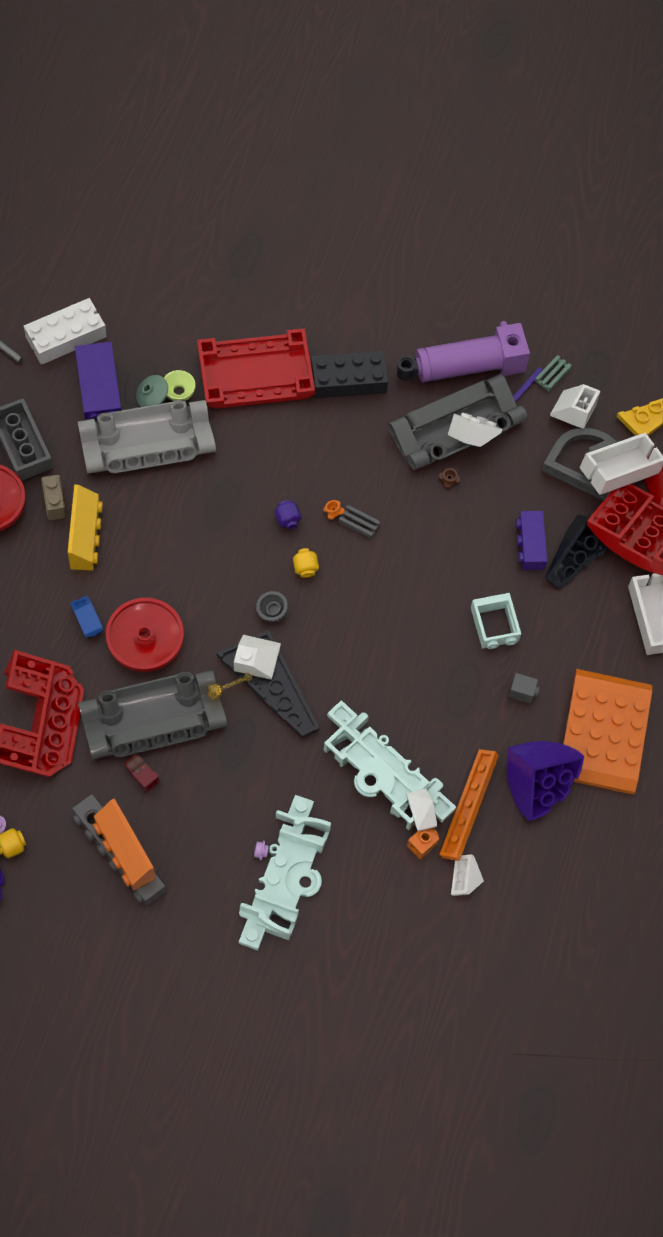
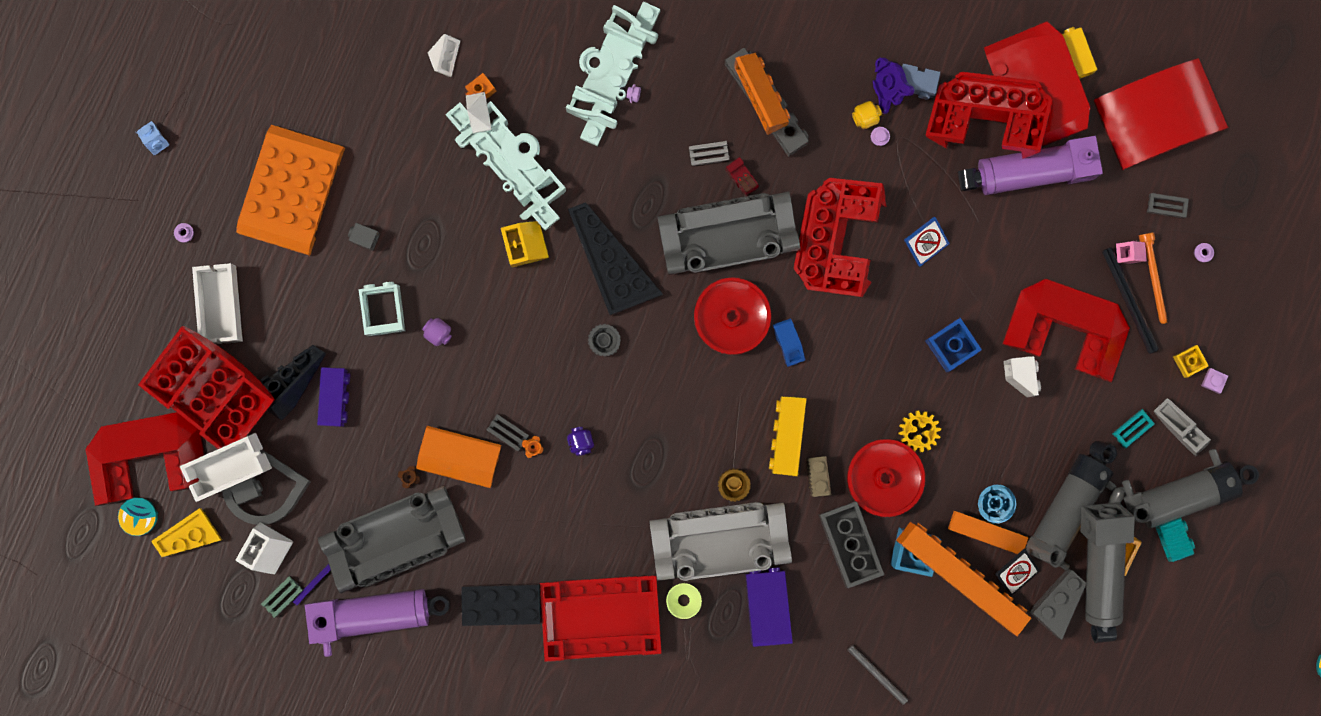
camera: 170 degrees left, 20 degrees up
(65, 329) = (801, 677): white piece -> none
(136, 486) = (734, 484): none -> pearl gold hat
(152, 391) = (706, 596): sand green dish -> none
(181, 787) = (708, 146): none -> light grey tile
(215, 690) = (666, 251): clear yellow hinge -> none
(256, 656) = (623, 284): white slope -> none
(305, 563) = (566, 385): yellow head -> none
(361, 689) = (524, 243): none -> yellow slope
(404, 496) = (458, 456): none -> orange slope
(438, 603) = (437, 332): none -> medium lavender head
(469, 805) = (432, 122): orange plate -> none
(472, 429) = (377, 520): white slope -> none
(541, 775) = (358, 143): dark purple brick -> none

